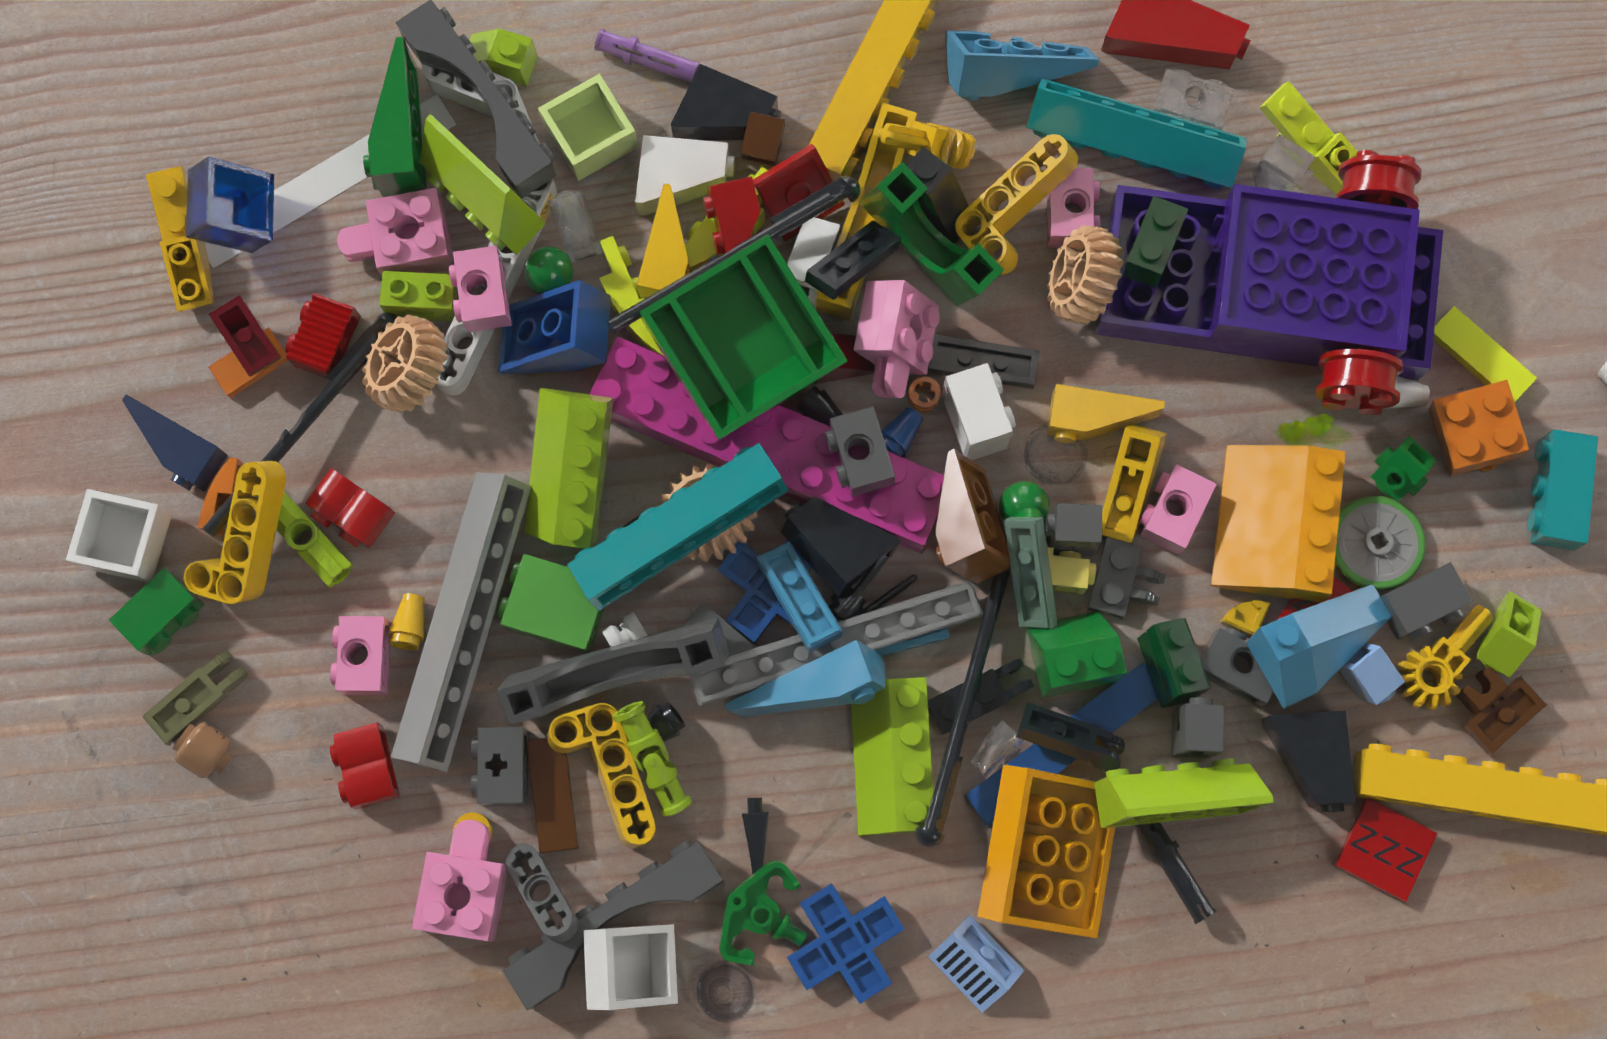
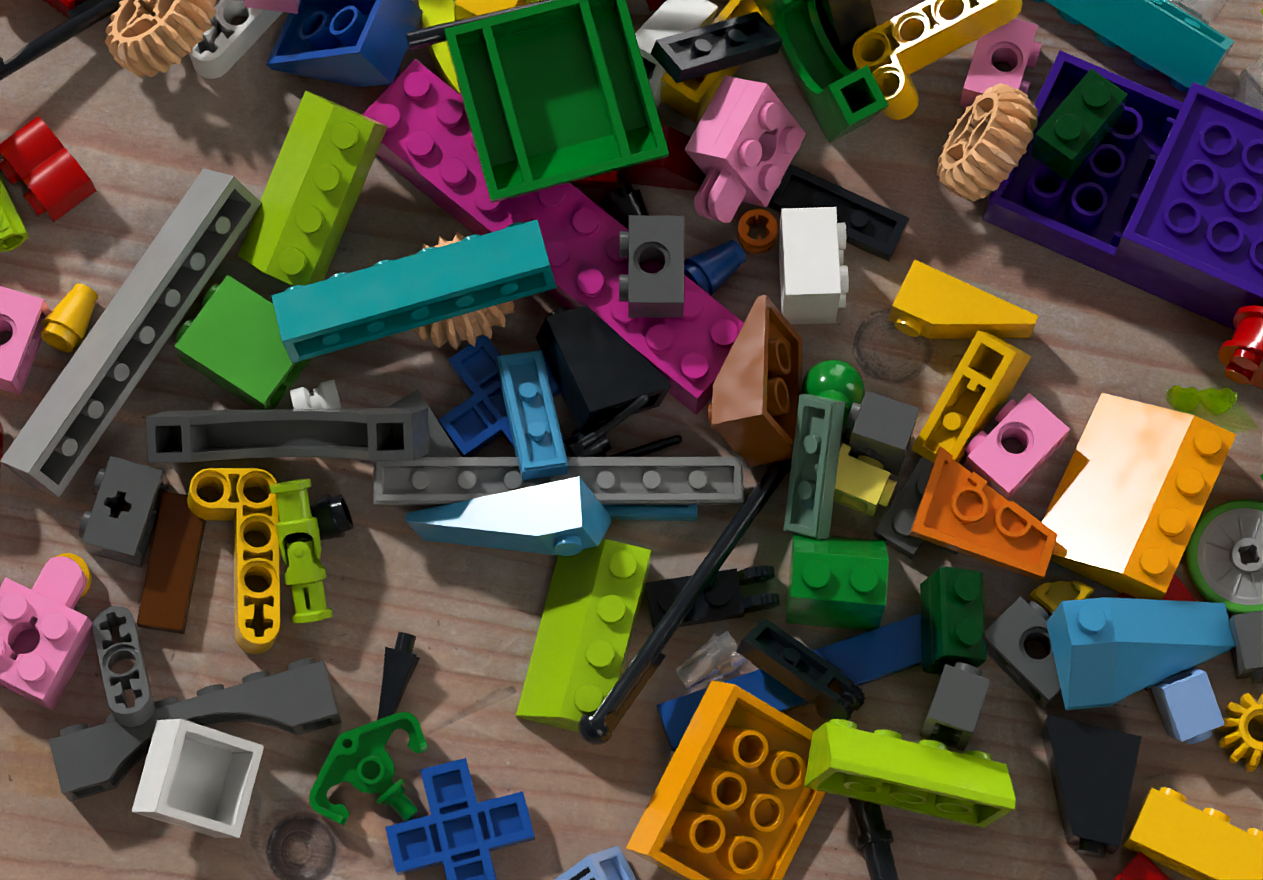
camera: 15 degrees right, 5 degrees down
(1165, 577) = (979, 522): none -> orange wing

